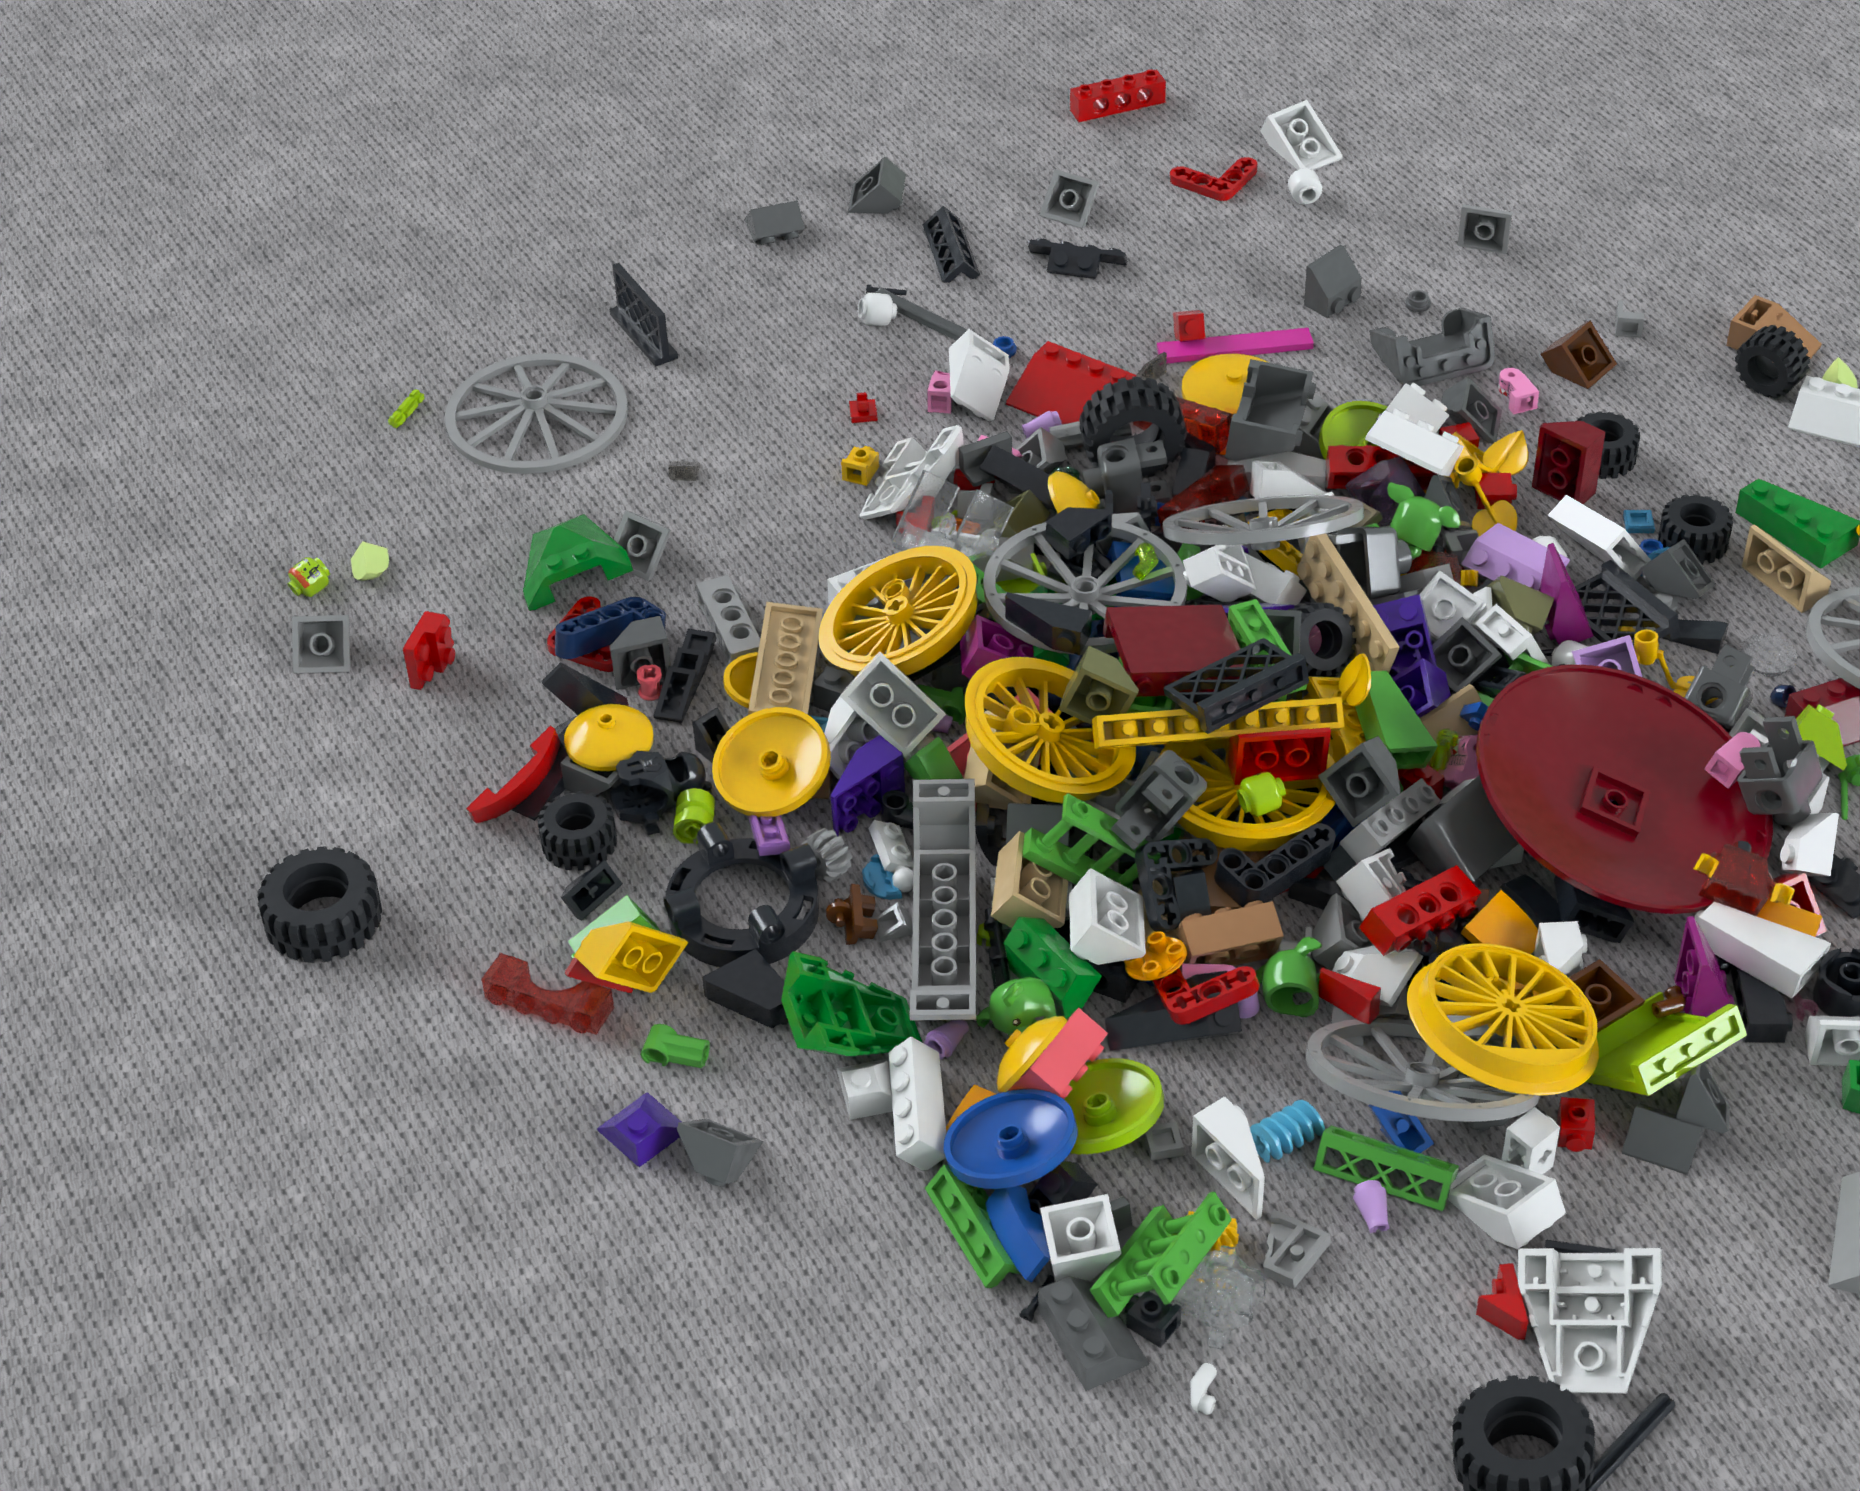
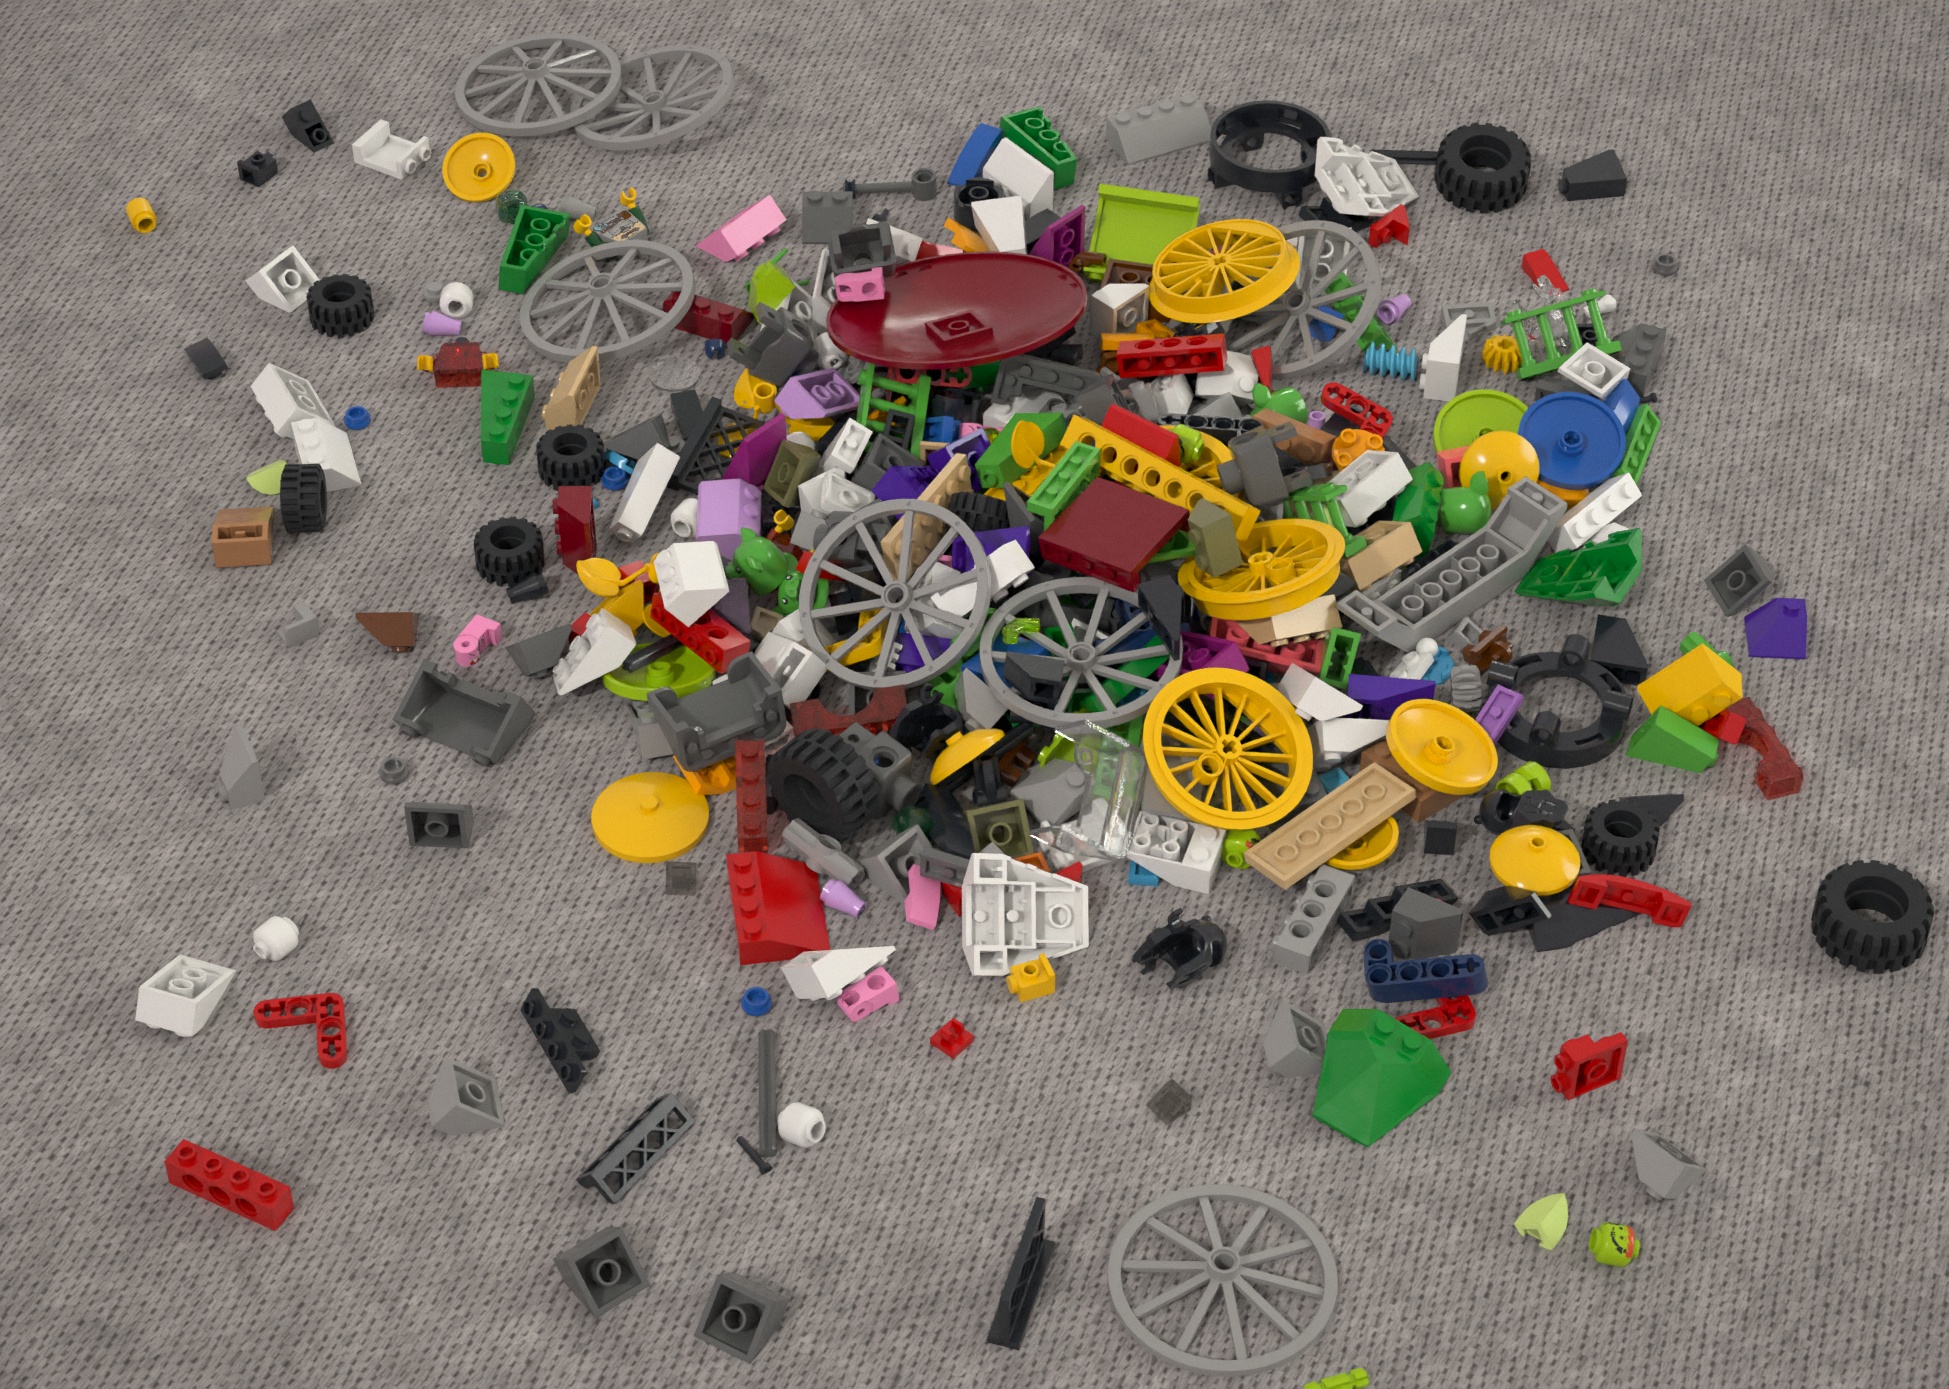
camera: 135 degrees left, 0 degrees up
(784, 532) = (1185, 946): none -> black helmet
(1189, 325) = (600, 880): red brick -> none
(1237, 344) = (585, 853): dark pink tile -> none
(1241, 695) = (1137, 438): black fence -> none
(1304, 1385) = (1540, 263): none -> red slope
(1740, 879) = (977, 238): clear red torso -> none
(1743, 1216) = (1247, 125): none -> black piece

